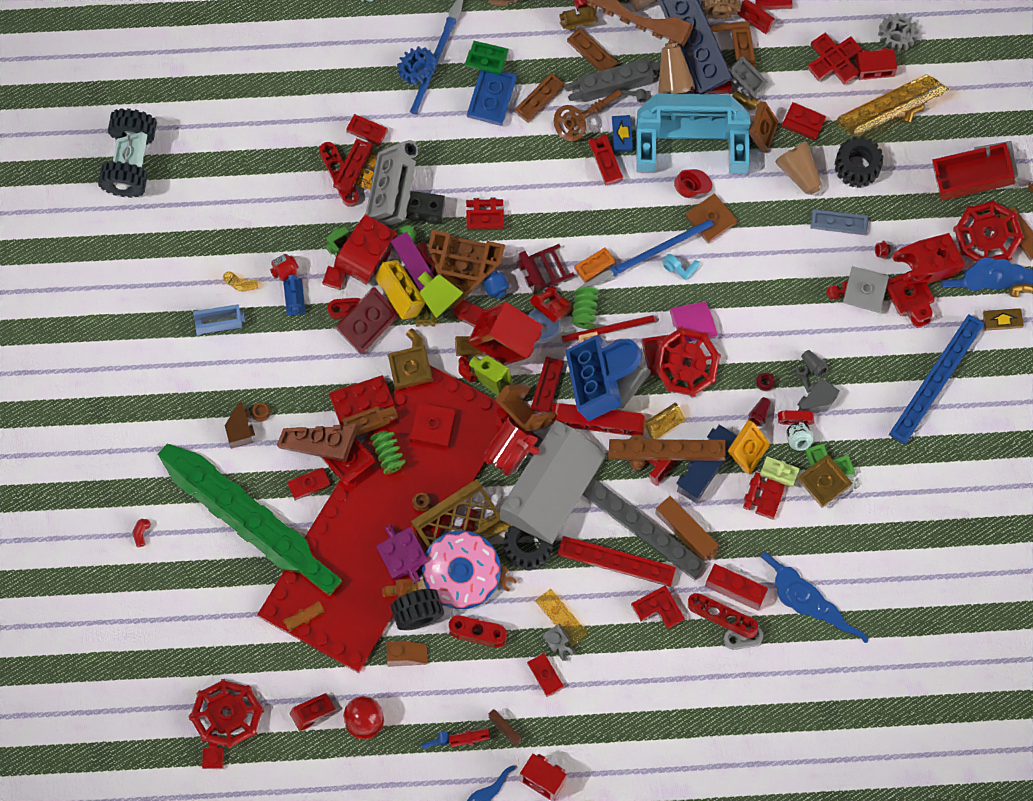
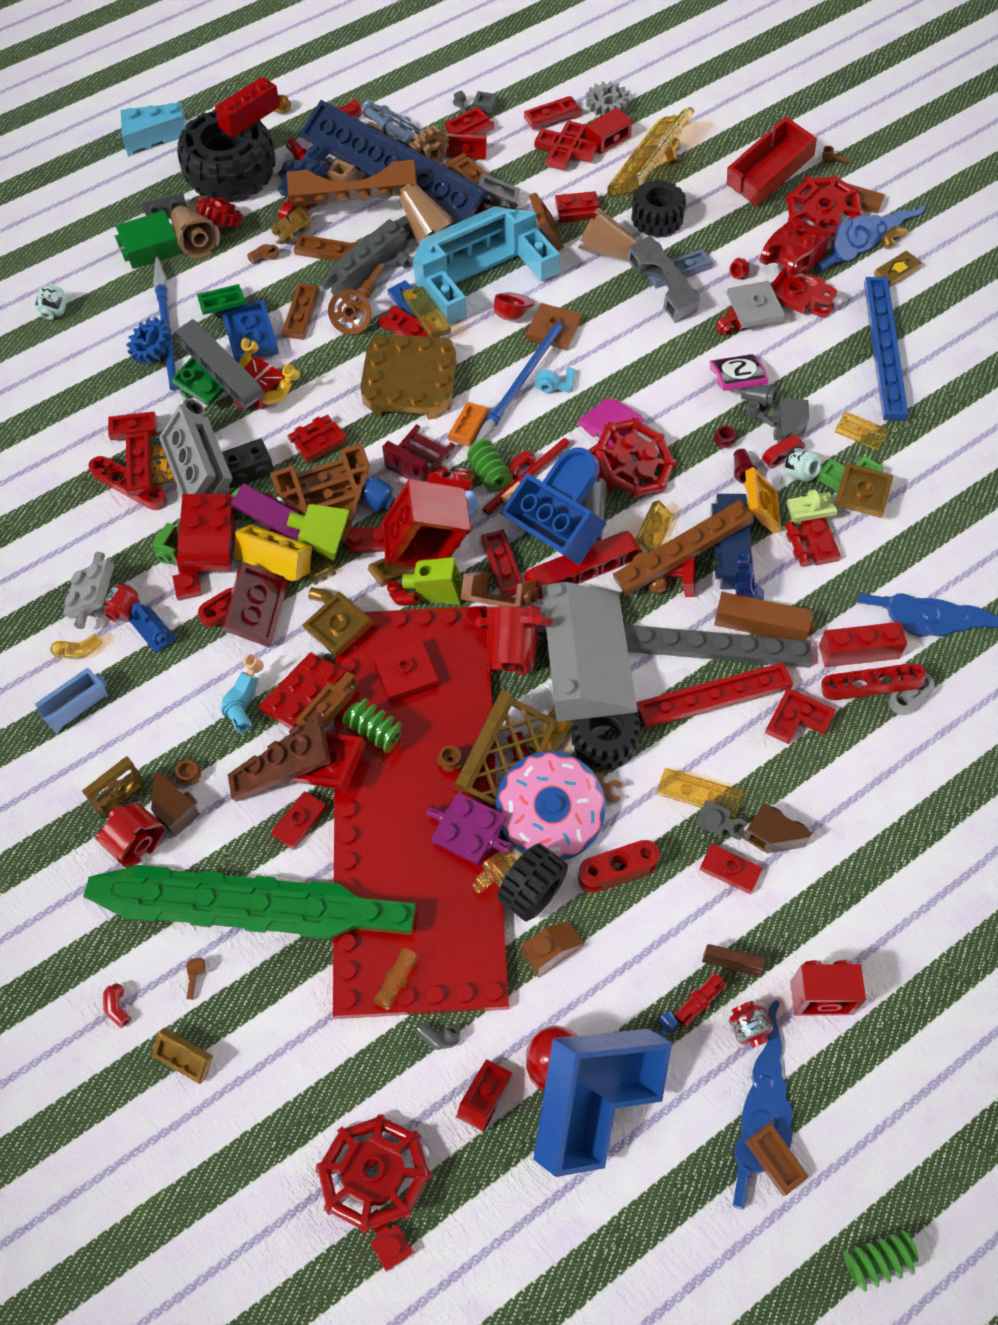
camera: 30 degrees left, 10 degrees down
(161, 584) = (182, 1055): none -> pearl gold plate
(196, 537) = (194, 967): none -> dark orange hand
(204, 433) = (130, 834): none -> red brick
(211, 397) = (127, 787): none -> pearl gold piece
(269, 245) = (88, 589): none -> light grey plate
(307, 665) = (438, 1040): none -> dark grey arm
(322, 379) = (241, 694): none -> medium azure arm
(369, 739) = (585, 1085): none -> blue piece
(436, 120) = (197, 382): none -> green plate
(448, 121) = (219, 364): none -> dark grey beam
(472, 144) = (273, 382): none -> torso
(487, 768) = (750, 1024): none -> head
(545, 28) = (263, 252): none -> dark orange arm
(579, 200) = (408, 375): none -> pearl gold plate
(586, 669) = (775, 832): none -> reddish brown slope
(609, 315) = (518, 461): none -> red arm
(624, 155) = (426, 312): none -> clear yellow tile
(687, 498) = (745, 579): none -> clear blue bar
(812, 336) = (738, 372): none -> slope
(815, 205) = (649, 259): none -> flat silver arch
(847, 19) = (552, 112): none -> red plate
(874, 448) = (860, 433): none -> clear yellow tile

